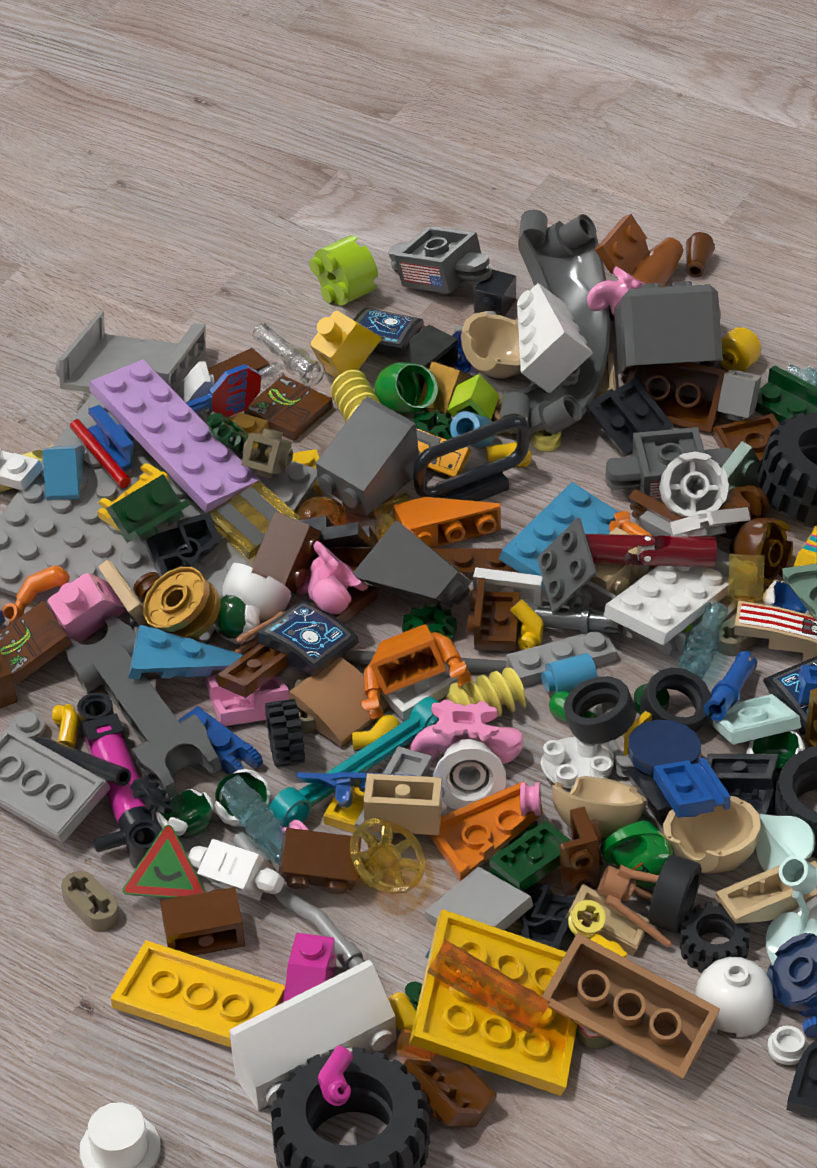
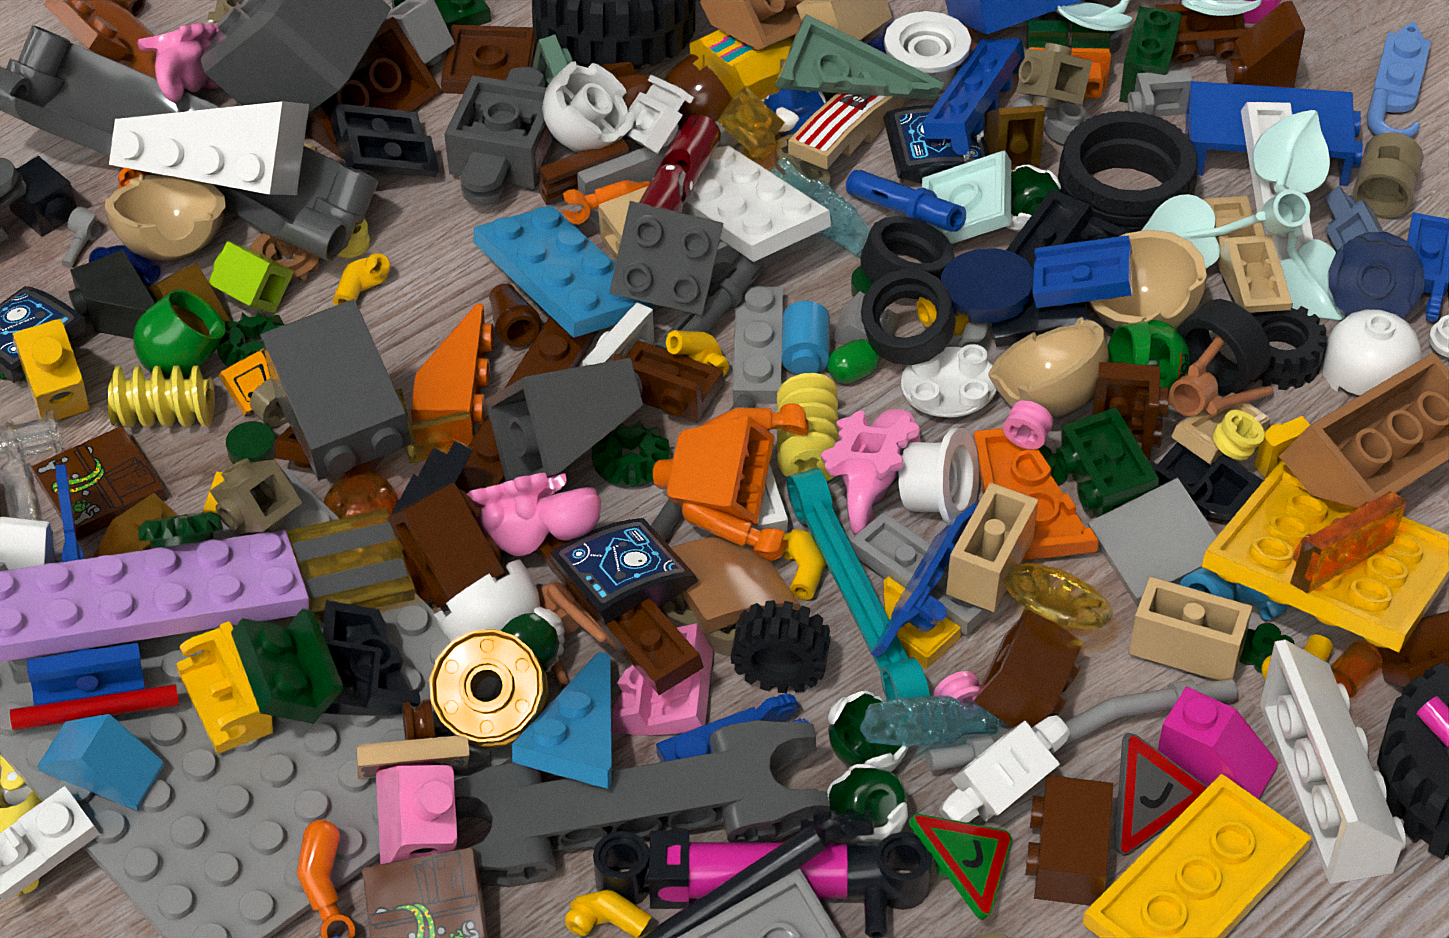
camera: 70 degrees left, 5 degrees up
(254, 949) = (1150, 793): none -> piece
(396, 937) = (1190, 629): none -> tan brick
(468, 421) = (308, 291): dark azure brick -> none
(478, 482) = (390, 314): black bar -> none
(508, 528) = (513, 316): none -> reddish brown cone

